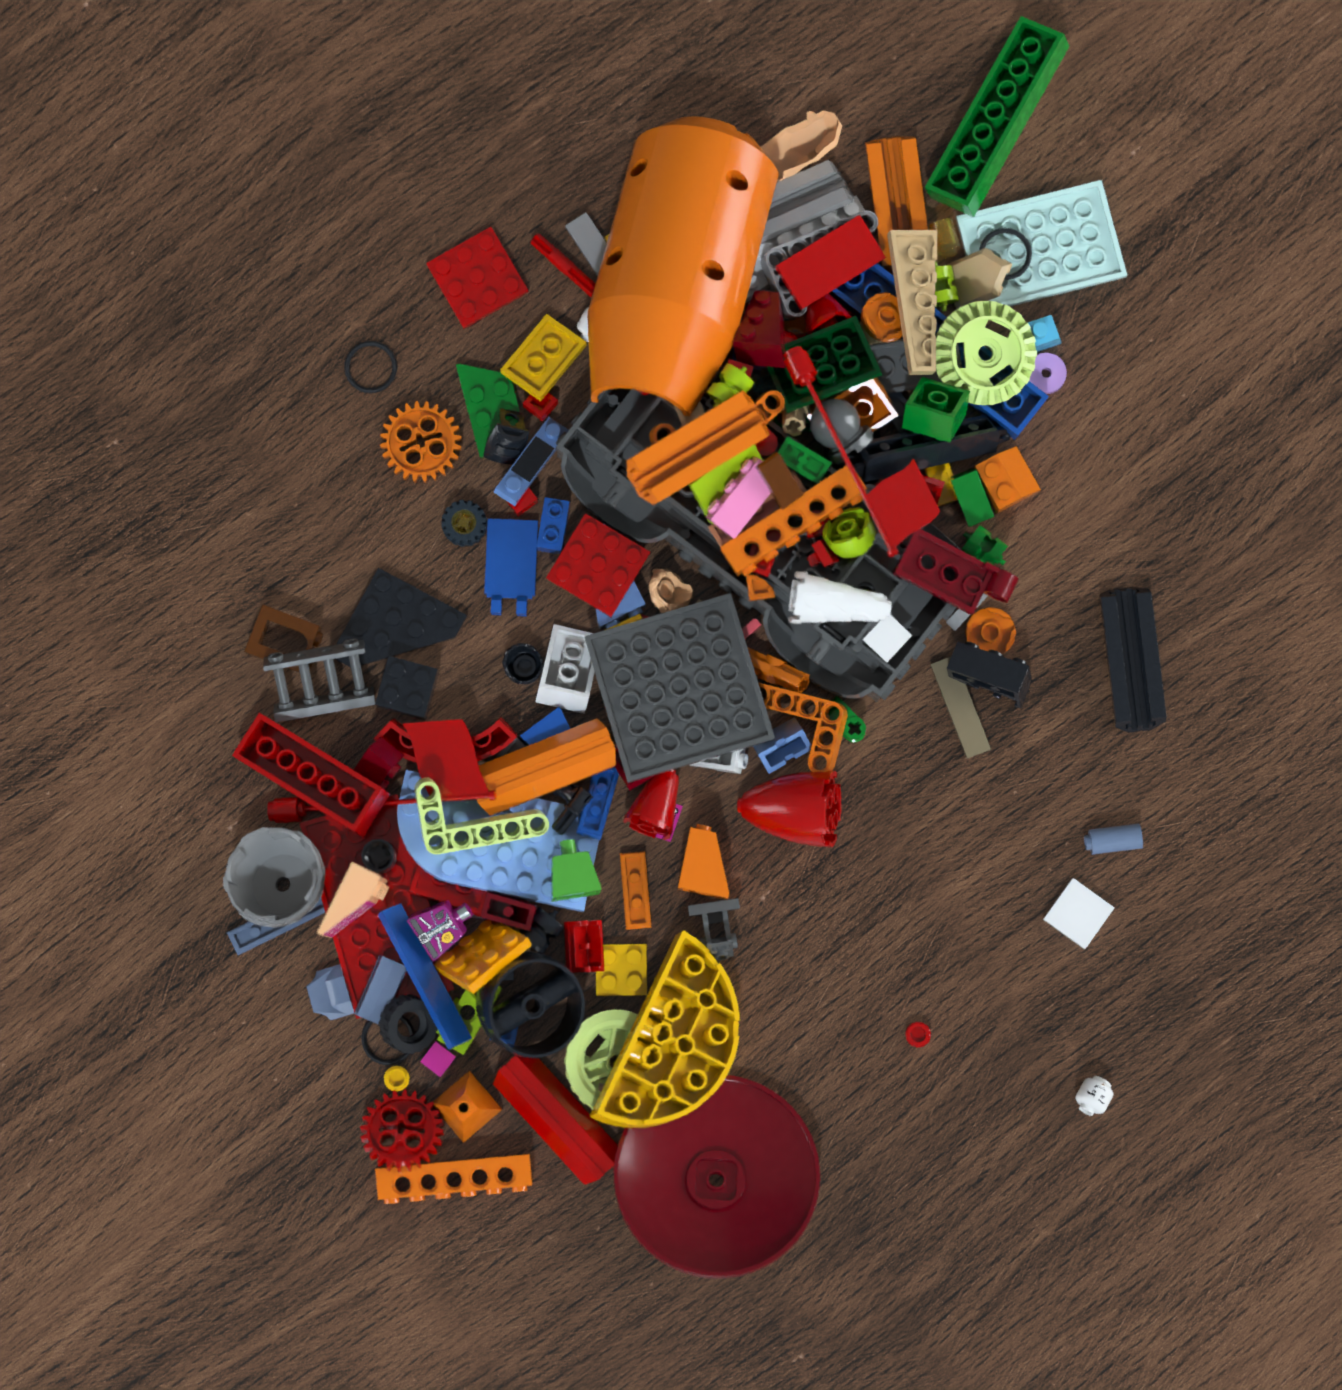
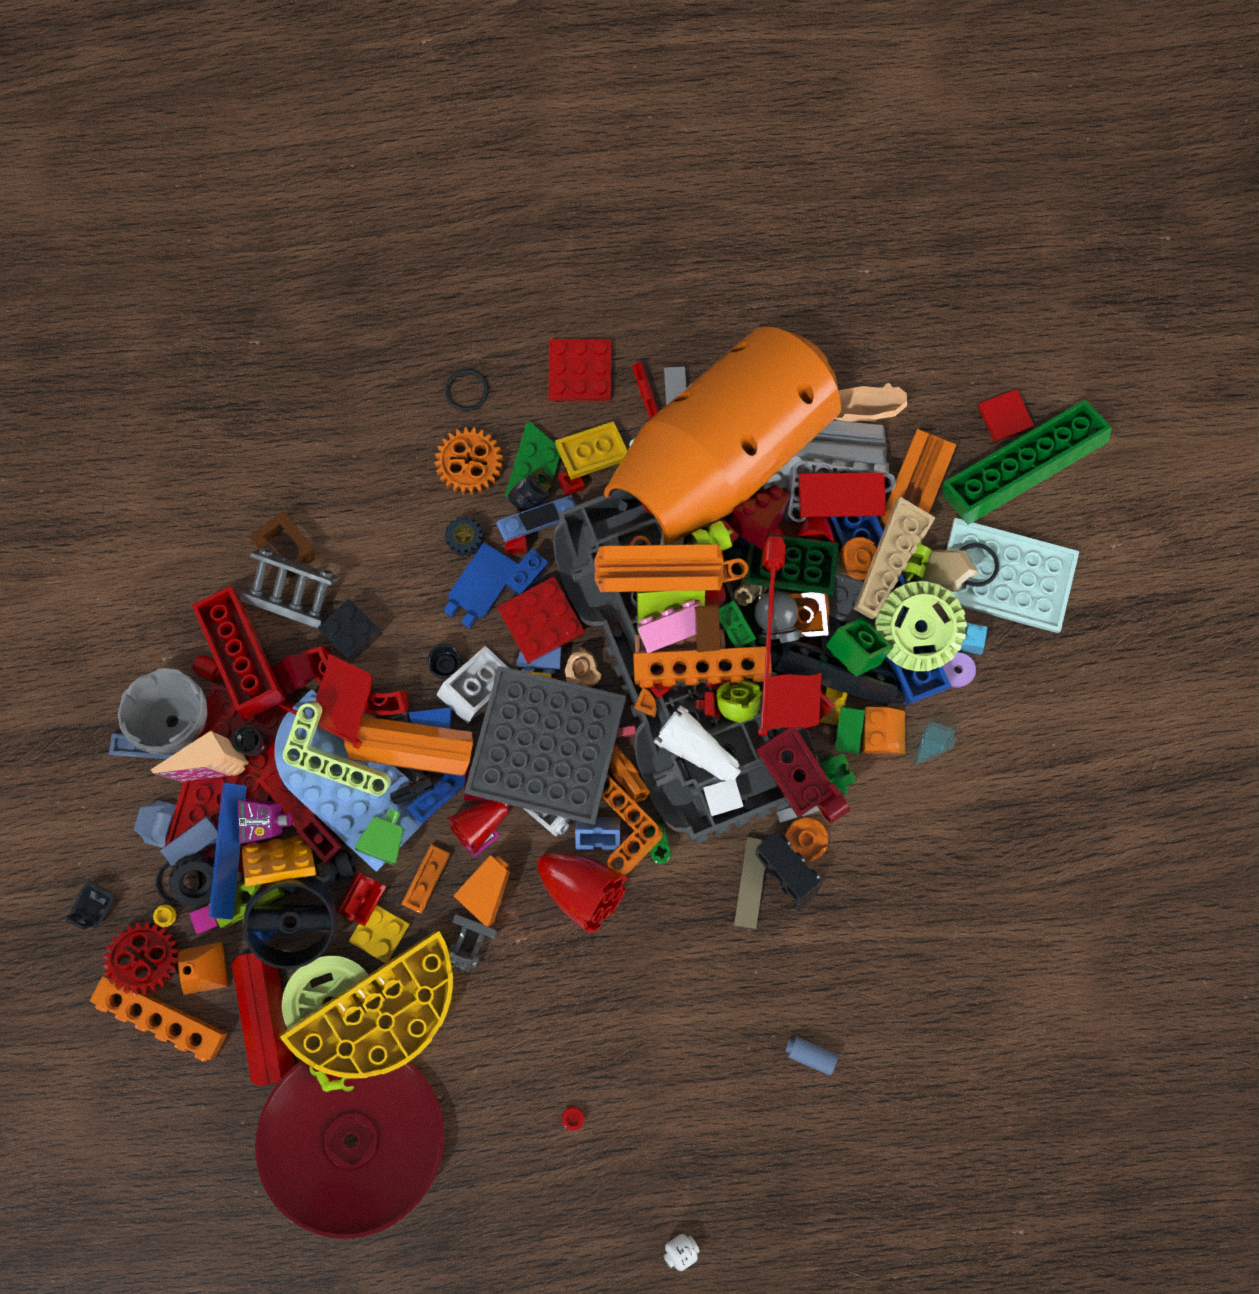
camera: 35 degrees right, 5 degrees down
(318, 1110) = (90, 906): none -> black piece
(398, 620) = (375, 578): black plate -> none
(664, 1139) = (330, 1085): none -> lime arm
(946, 237) = (938, 530): clear yellow brick -> none
(948, 75) = (1005, 415): none -> red tile
(1063, 461) = (934, 742): none -> clear light blue slope
(1078, 913) = (751, 1097): white tile -> none
(1133, 659) = (904, 923): black piece -> none

